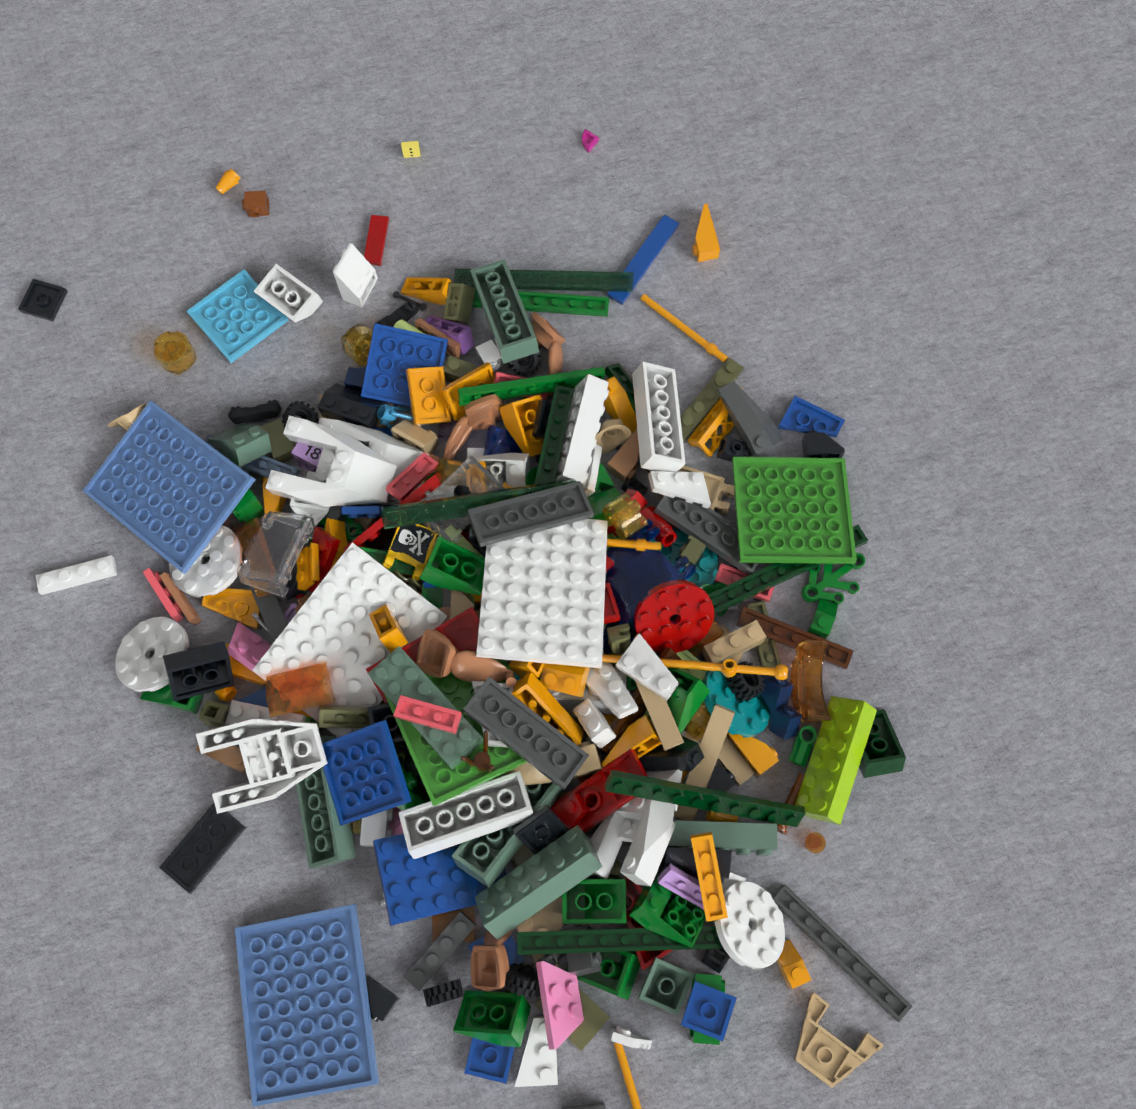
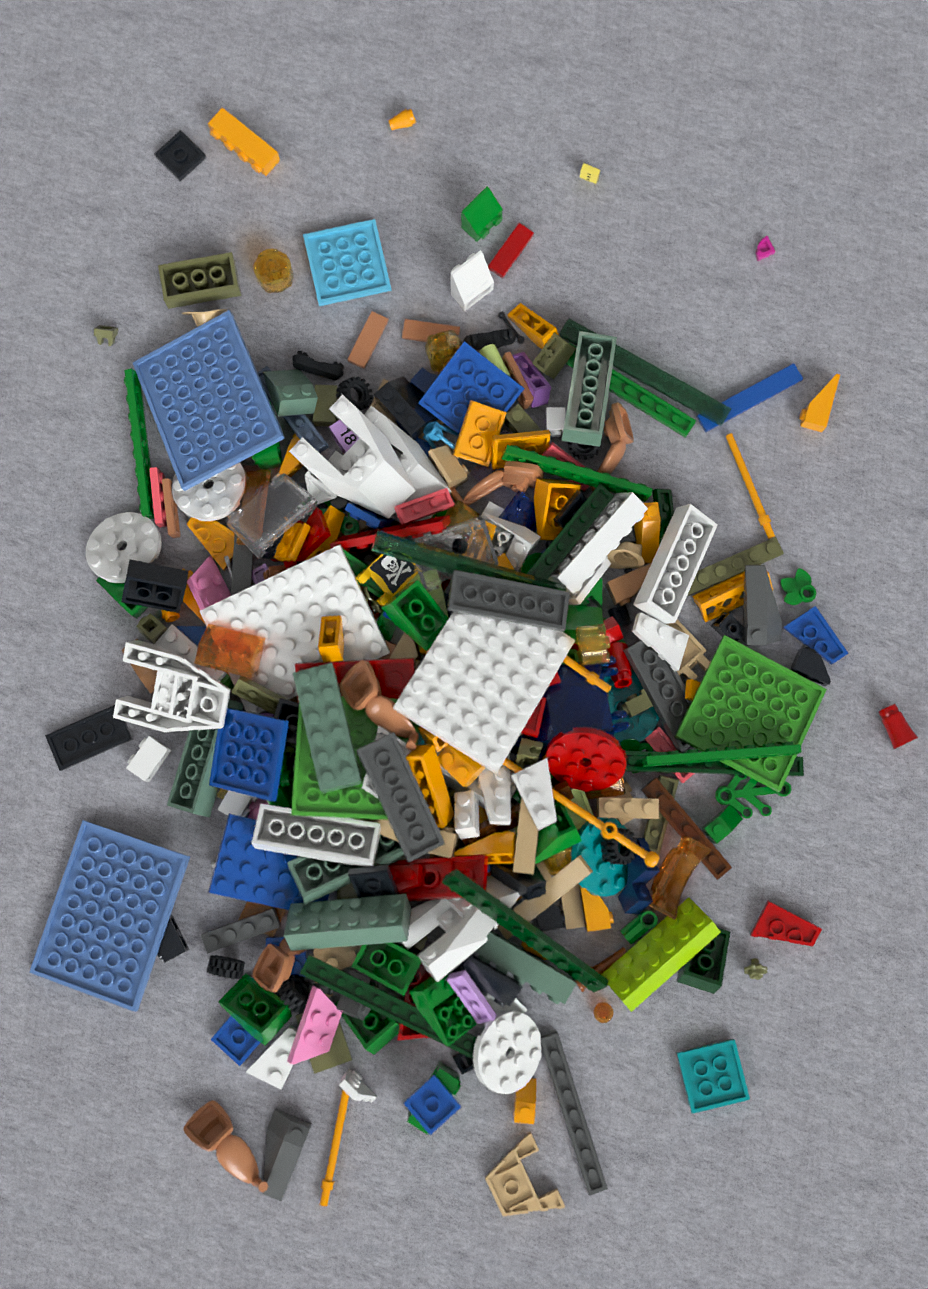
camera: 25 degrees right, 10 degrees up
(46, 476) = (105, 332): none -> olive tile
(76, 575) = (92, 438): white plate -> none
(95, 262) = (244, 142): none -> light orange brick
(111, 391) = (199, 280): none -> olive brick
(121, 552) = (140, 441): none -> green plate
(256, 203) = (418, 157): dark orange brick -> none
(270, 835) = (148, 758): none -> white brick
(288, 294) = (401, 266): white slope -> none
(289, 370) = (368, 340): none -> nougat tile
(331, 340) = (421, 330): none -> nougat tile
(335, 222) = (481, 215): none -> green slope
(428, 714) = (324, 739): coral plate -> none
(482, 759) = (351, 800): reddish brown plant -> none
(666, 986) = (410, 1063): sand green slope -> none
(709, 876) = (491, 998): light orange plate -> none
(730, 516) = (691, 688): none -> light orange tile
(770, 388) = (796, 586): none -> green plate
(793, 551) = (713, 754): none -> green plate
(921, 459) = (896, 726): none -> red plant
(926, 729) = (755, 969): none -> olive plant
(928, 677) = (784, 925): none -> red wing
(944, 846) = (713, 1076): none -> teal plate

